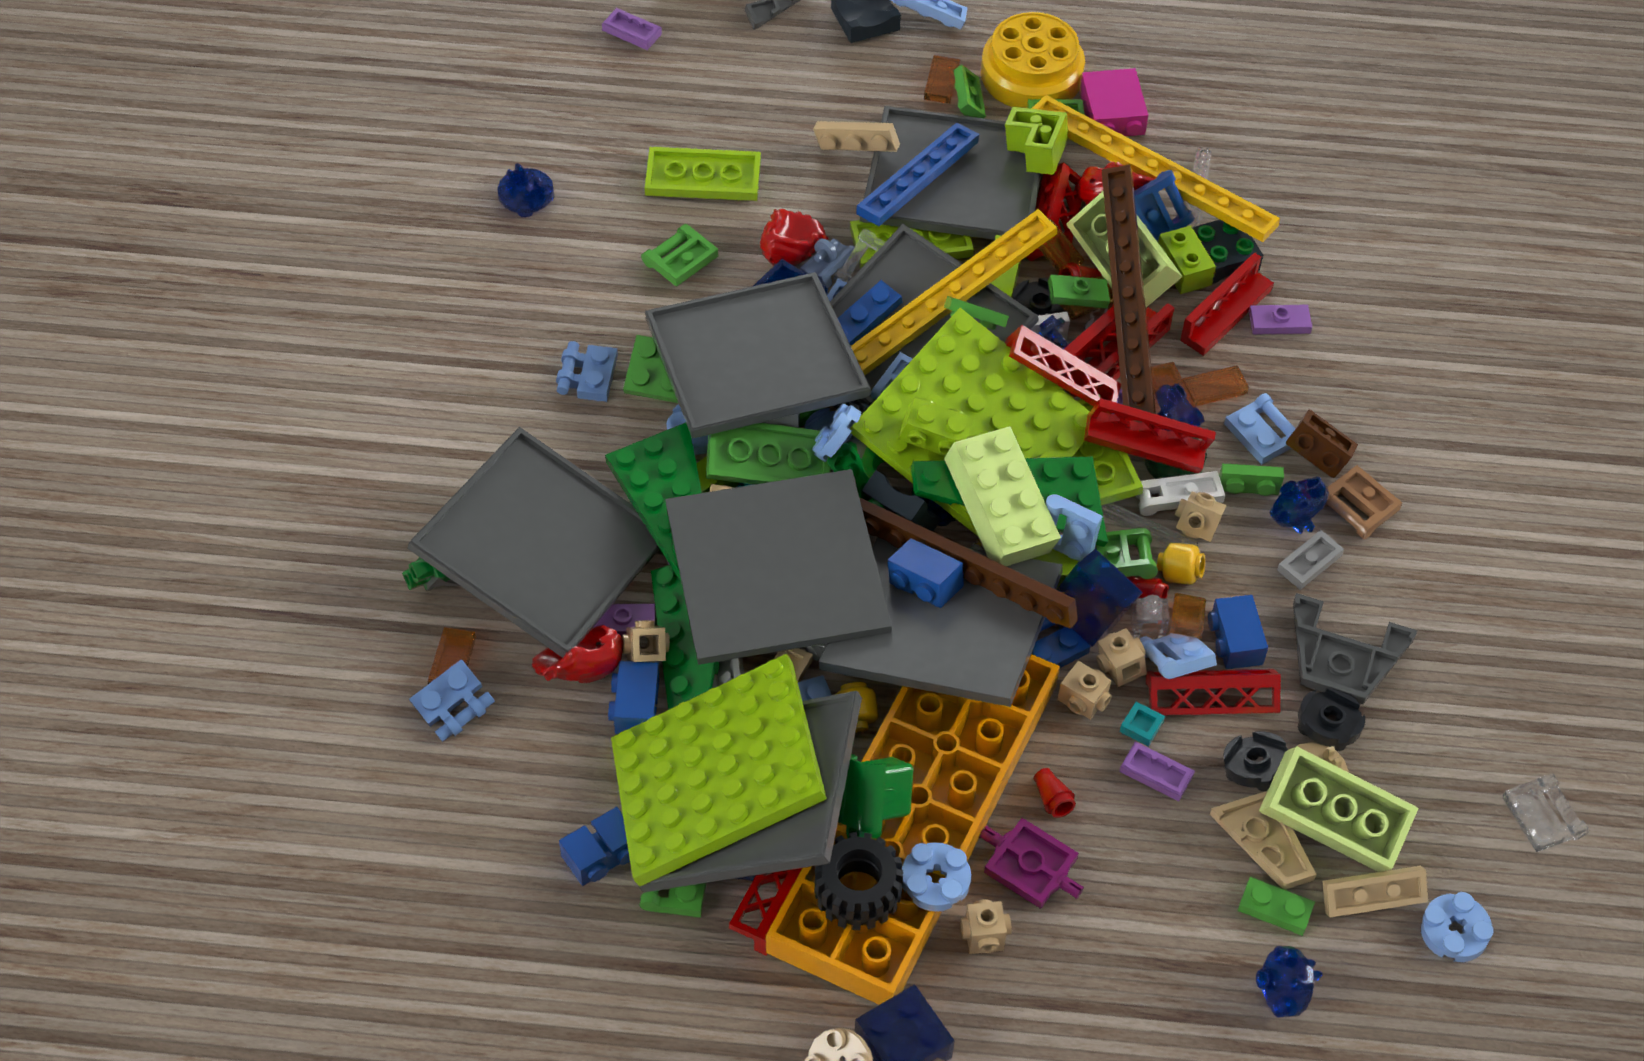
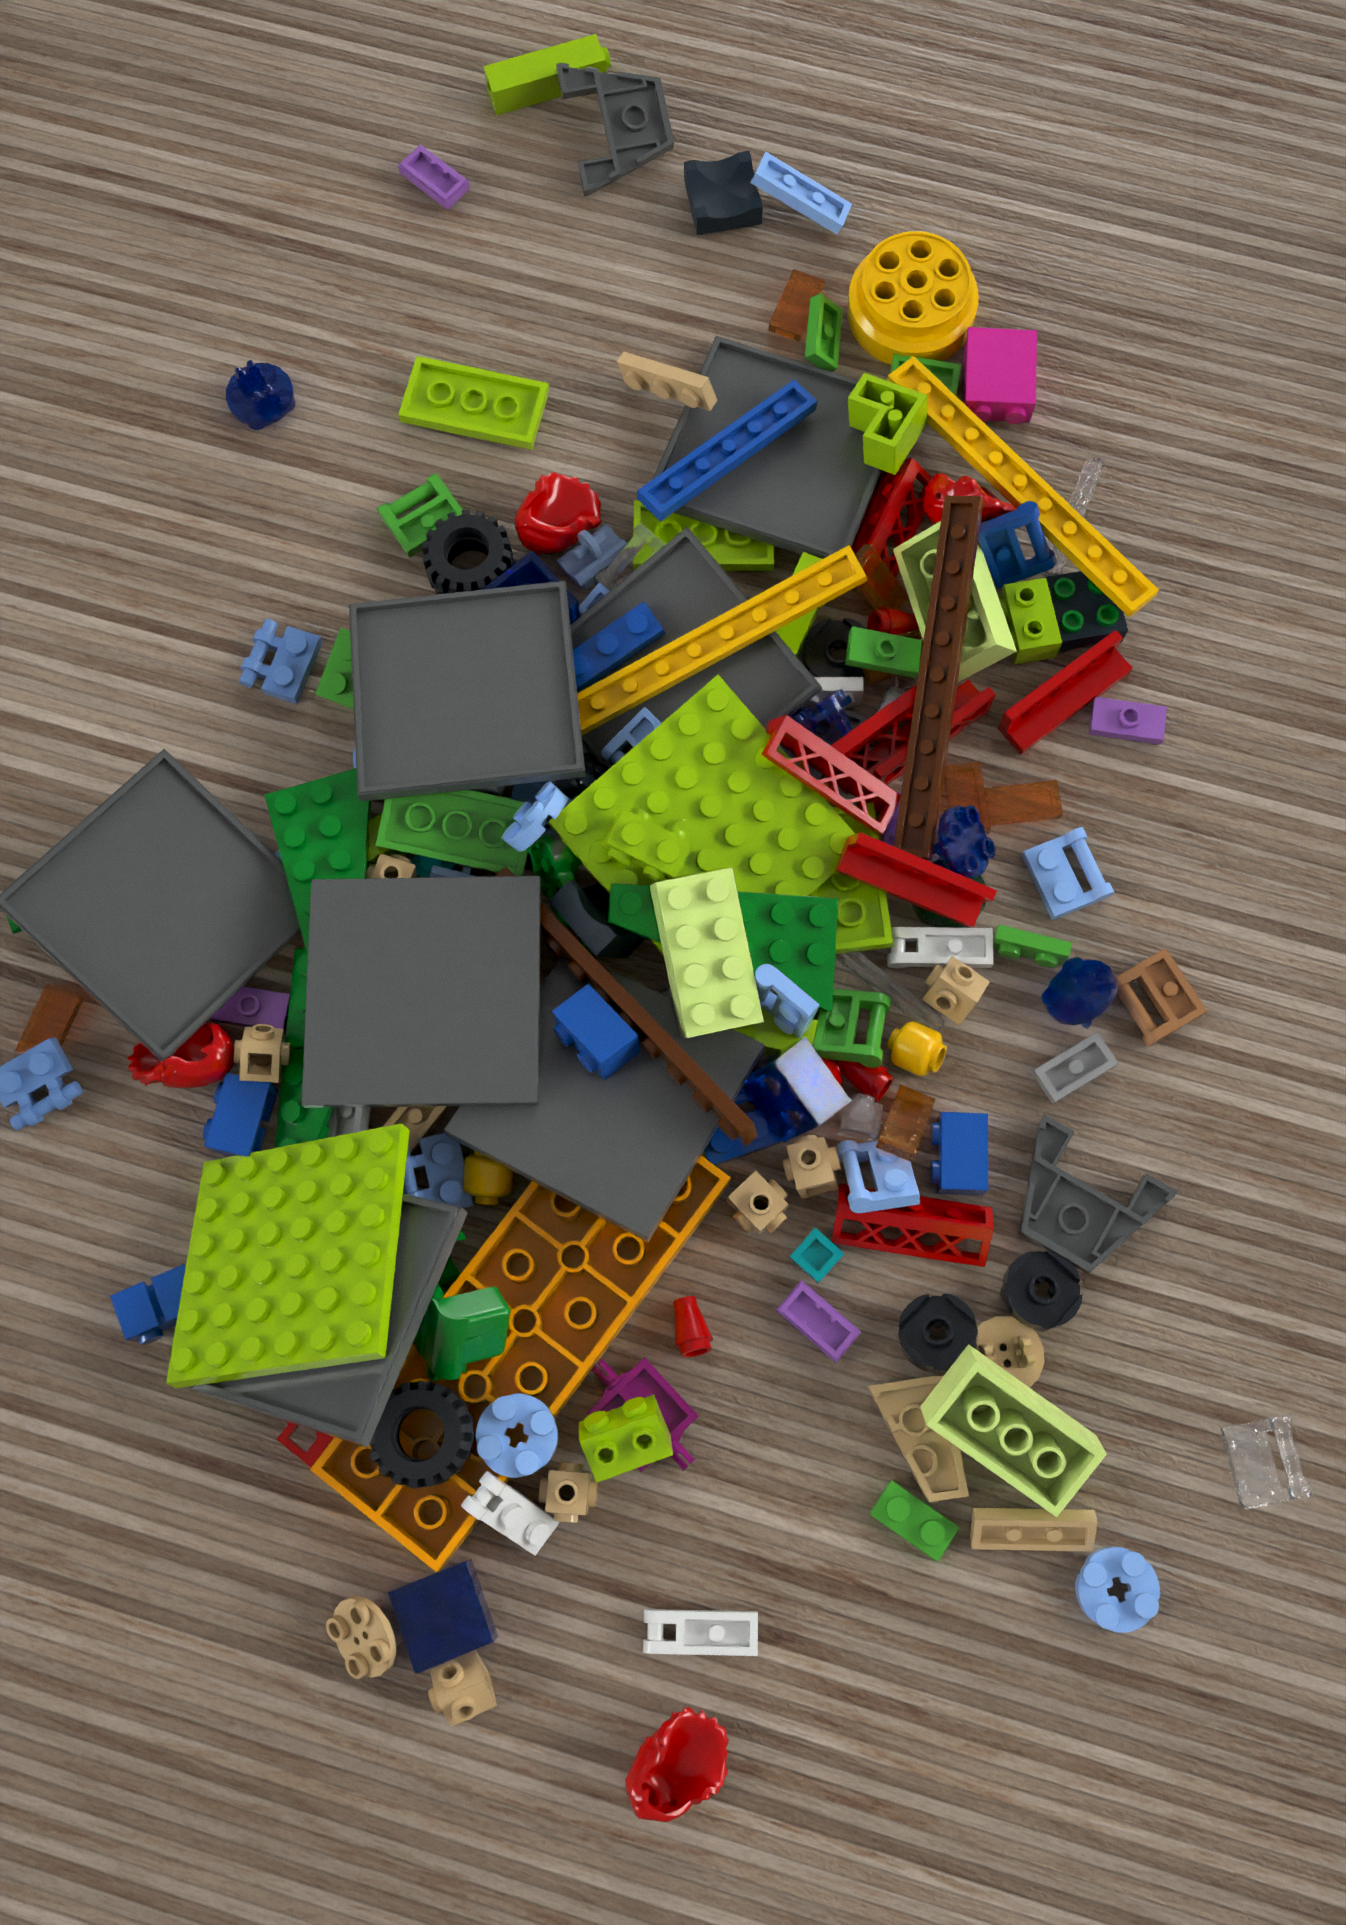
camera: 15 degrees right, 20 degrees up
(724, 260) = (460, 535): none -> black tyre
(943, 942) = (510, 1513): none -> white plate
(987, 317) = (753, 679): bright green plate -> none
(1025, 867) = (625, 1438): none -> lime brick
(1124, 1016) = (702, 1632): none -> white plate
(1287, 981) = (897, 1635): clear blue plate -> none
(1321, 444) = (1131, 910): reddish brown bracket -> none

